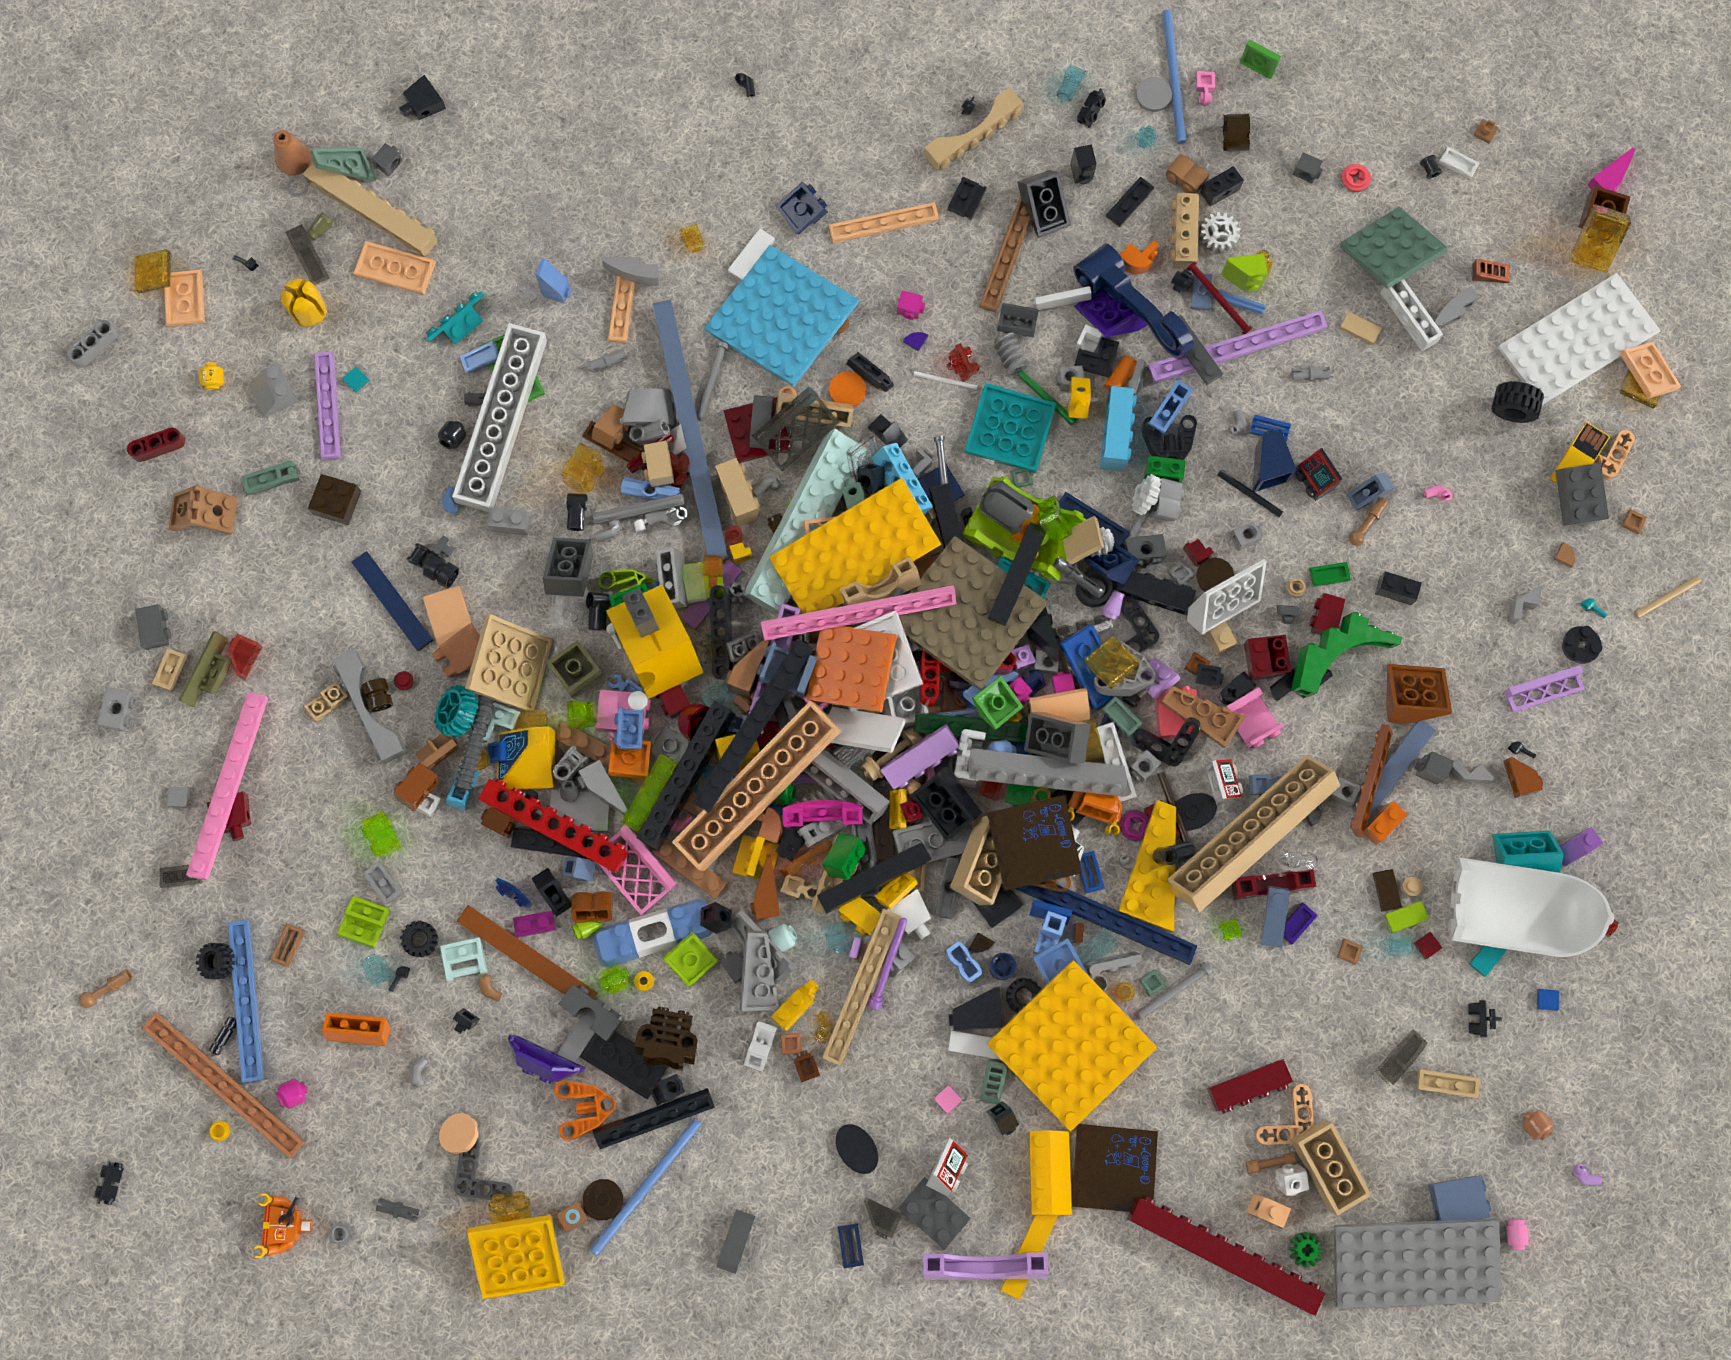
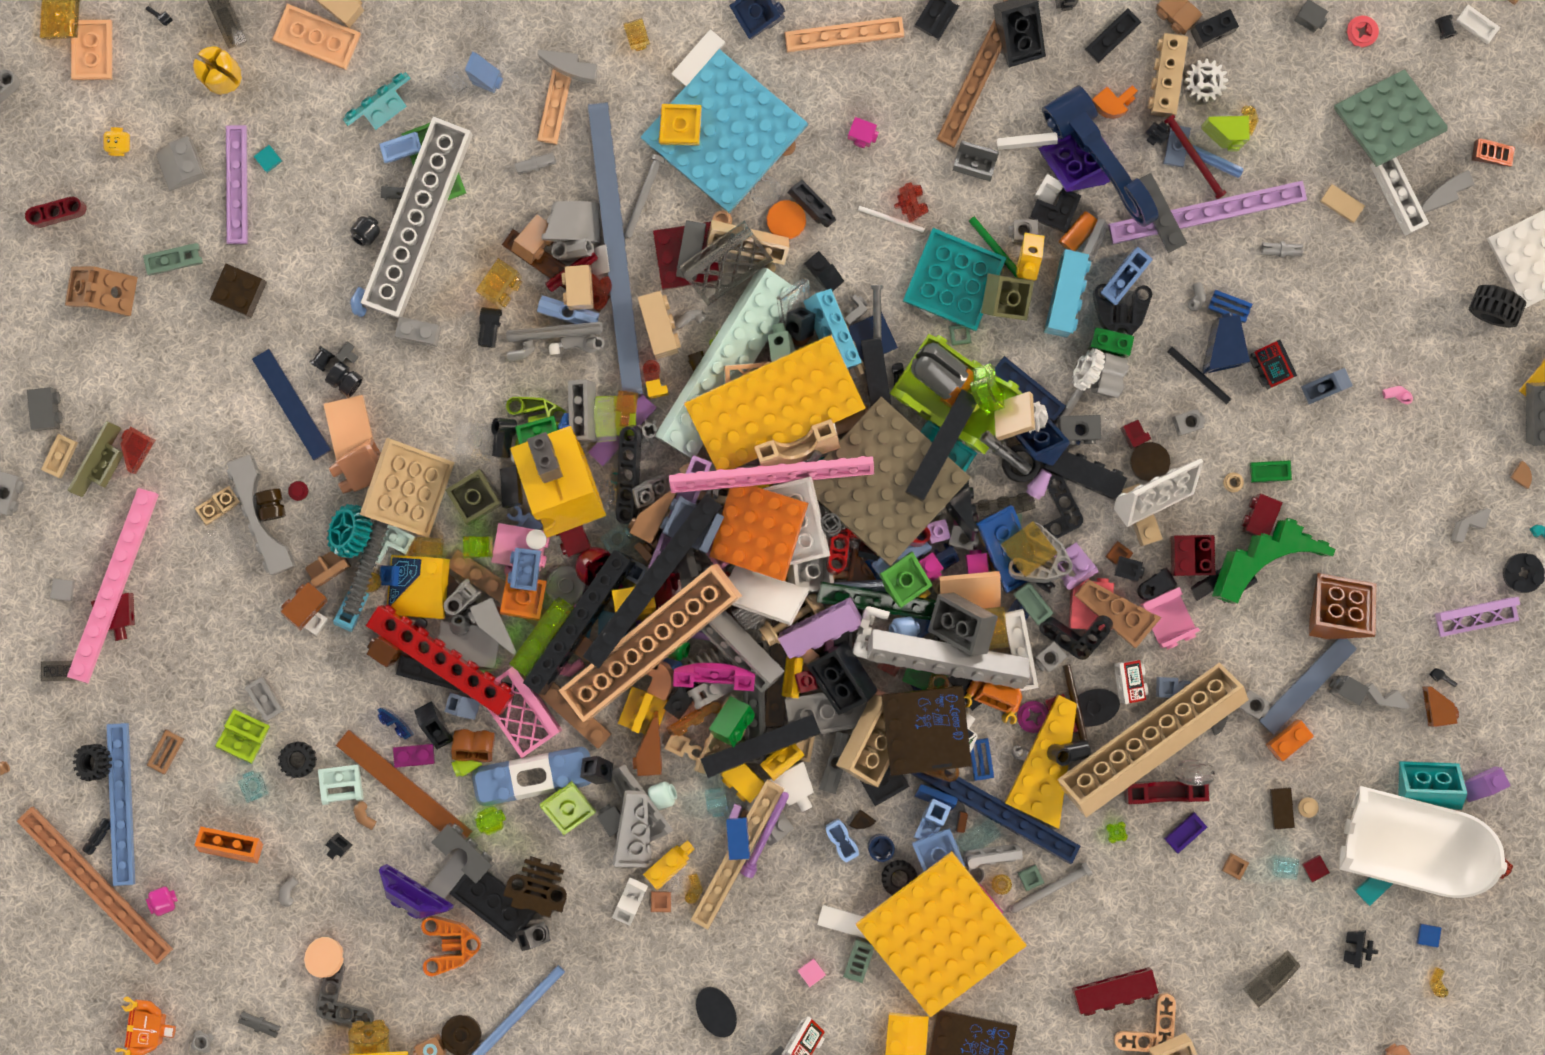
camera: 10 degrees right, 10 degrees up
(219, 1130) = (89, 929): yellow plate -> none
(289, 1214) = (152, 1021): black hand -> none
(381, 834) = (265, 650): clear neon green brick -> none
(400, 972) = (279, 791): black hand -> none
(568, 567) = (475, 389): dark grey brick -> none
(609, 656) = (510, 487): none -> black tile
(639, 976) = (526, 824): yellow plate -> none
(653, 1118) = (517, 962): black plate -> none
(740, 312) = (680, 124): none -> yellow tile
(806, 1066) = (673, 926): reddish brown bracket -> none
(861, 969) = (738, 838): none -> blue tile
(915, 340) = (864, 171): dark purple tile -> none
(921, 660) = (832, 528): none -> dark grey wheel
(978, 1013) = (851, 891): black slope -> none
(1003, 1118) = (864, 998): black slope -> none
(1009, 355) = (963, 197): light grey piece -> none
(1062, 436) = (1007, 297): none -> olive brick
(1181, 573) = (1114, 455): light grey tile -> none
(1275, 916) = (1163, 824): sand blue slope -> none
(1287, 612) = (1221, 508): dark grey tile -> none
(1357, 537) = (1305, 433): medium nougat pin -> none
(1373, 774) = (1285, 688): dark orange plate -> none
(1398, 588) = (1340, 495): black brick -> none
(1406, 917) = (1298, 837): lime tile -> none
(1448, 1083) = (1314, 1009): tan plate -> none
(1563, 1047) = (1437, 985): none -> clear yellow arm

